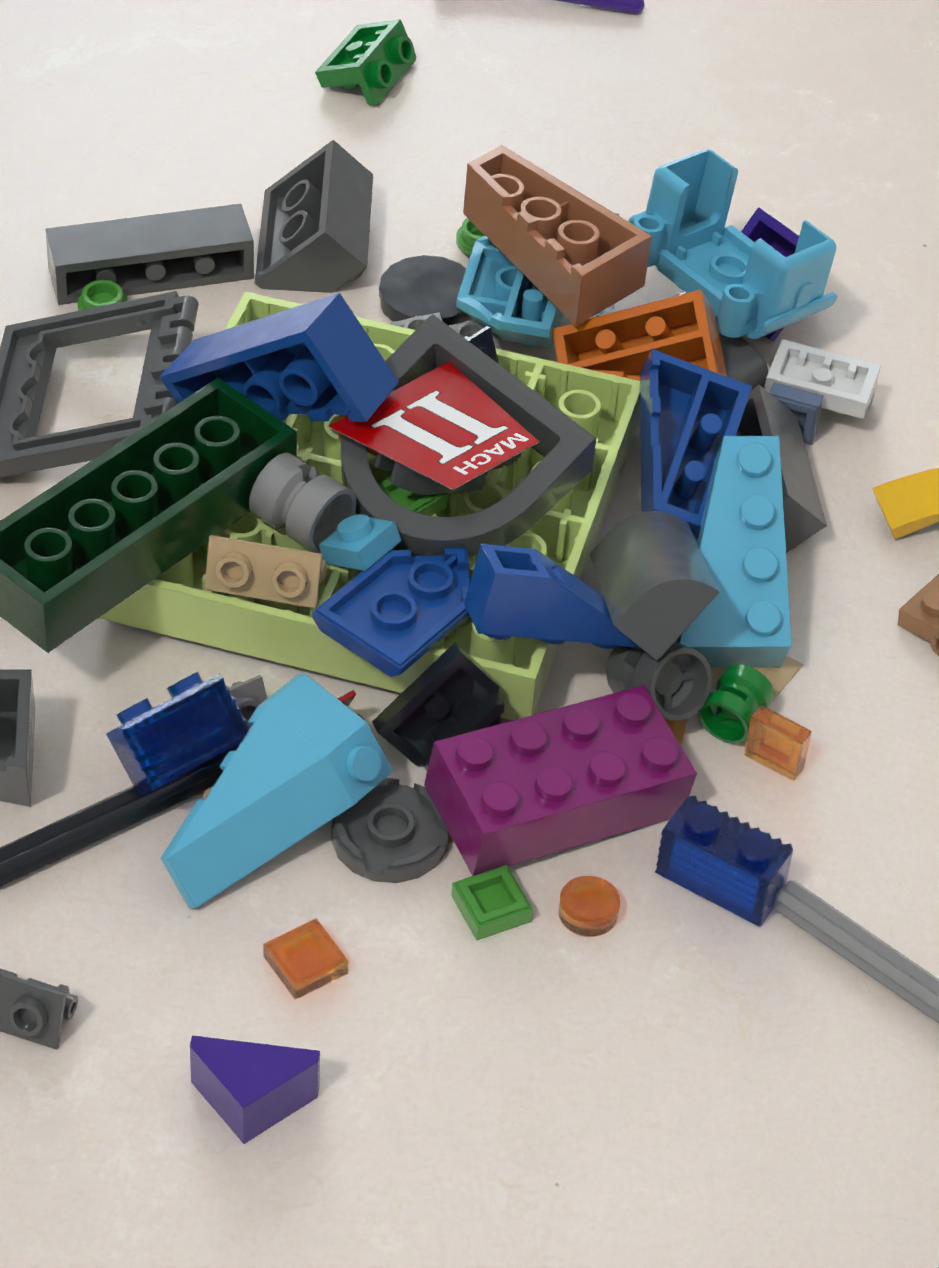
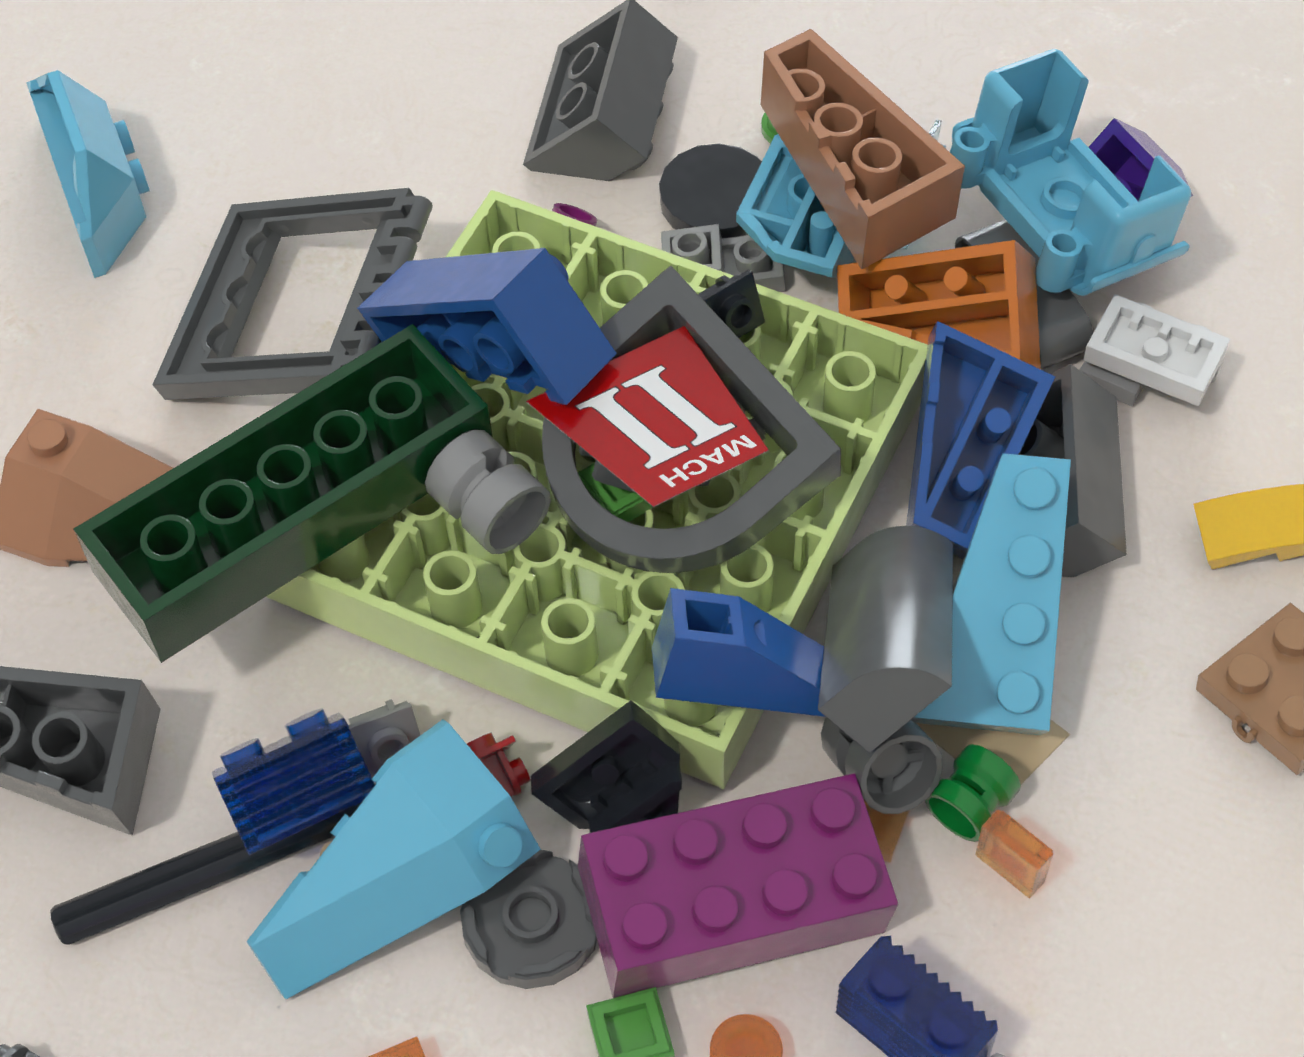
camera: 15 degrees right, 10 degrees up
(100, 294) = (346, 175): bright green plate -> none
(152, 252) = (408, 122): brick -> none
(264, 571) = (425, 579): tan hinge -> none
(359, 542) = (547, 548): medium azure plate -> none
(398, 607) = (578, 639): blue tile -> none
(803, 404) = (1124, 383): sand blue tile -> none

